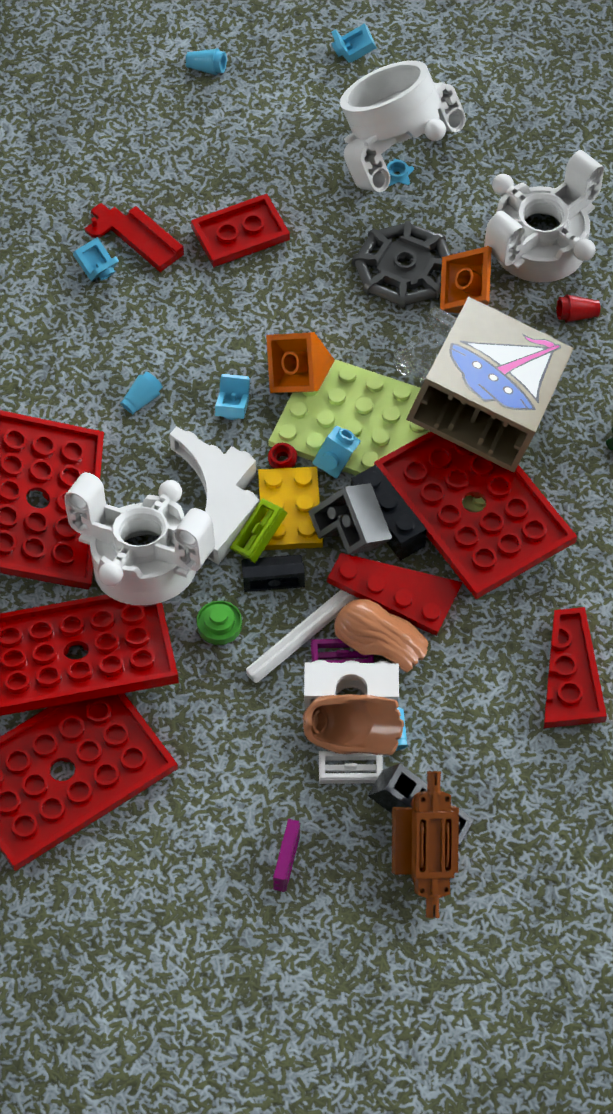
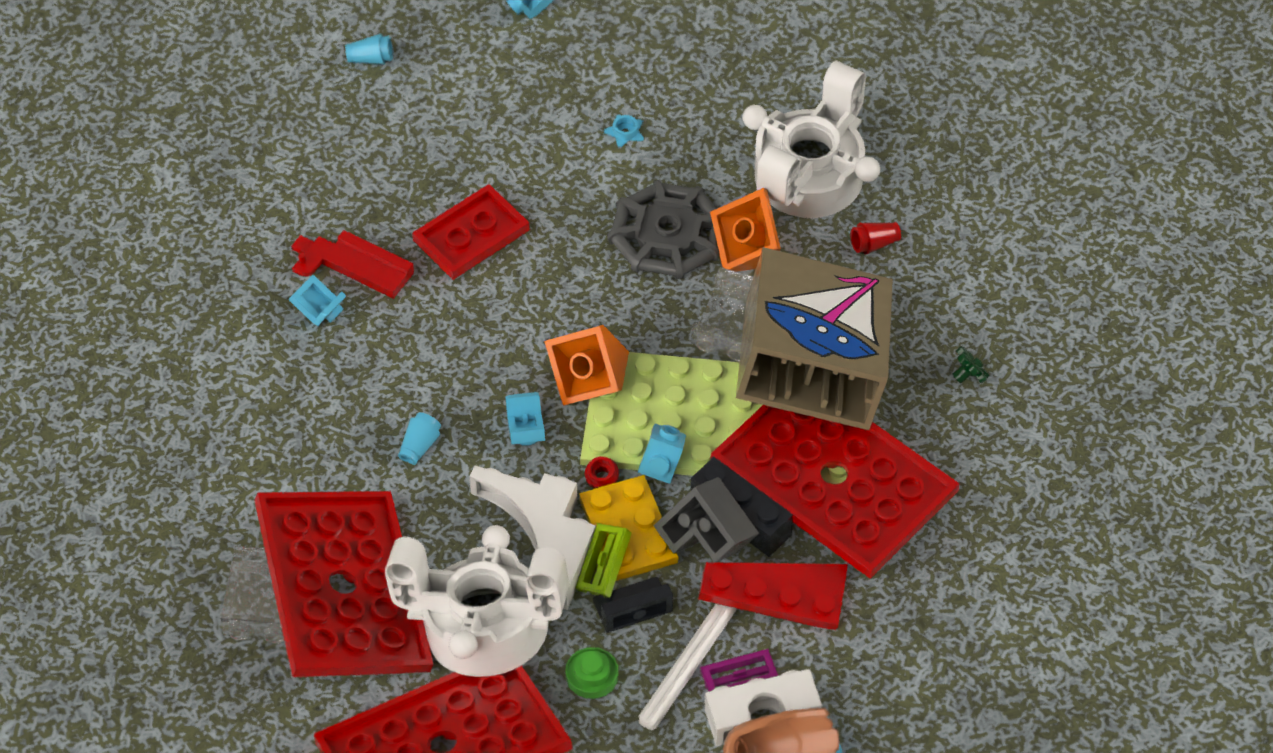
camera: 15 degrees left, 5 degrees down
(375, 631) = (769, 641): nougat hair -> none
(391, 108) = (604, 59): white piece -> none
(573, 677) = (1000, 638): red wing -> none

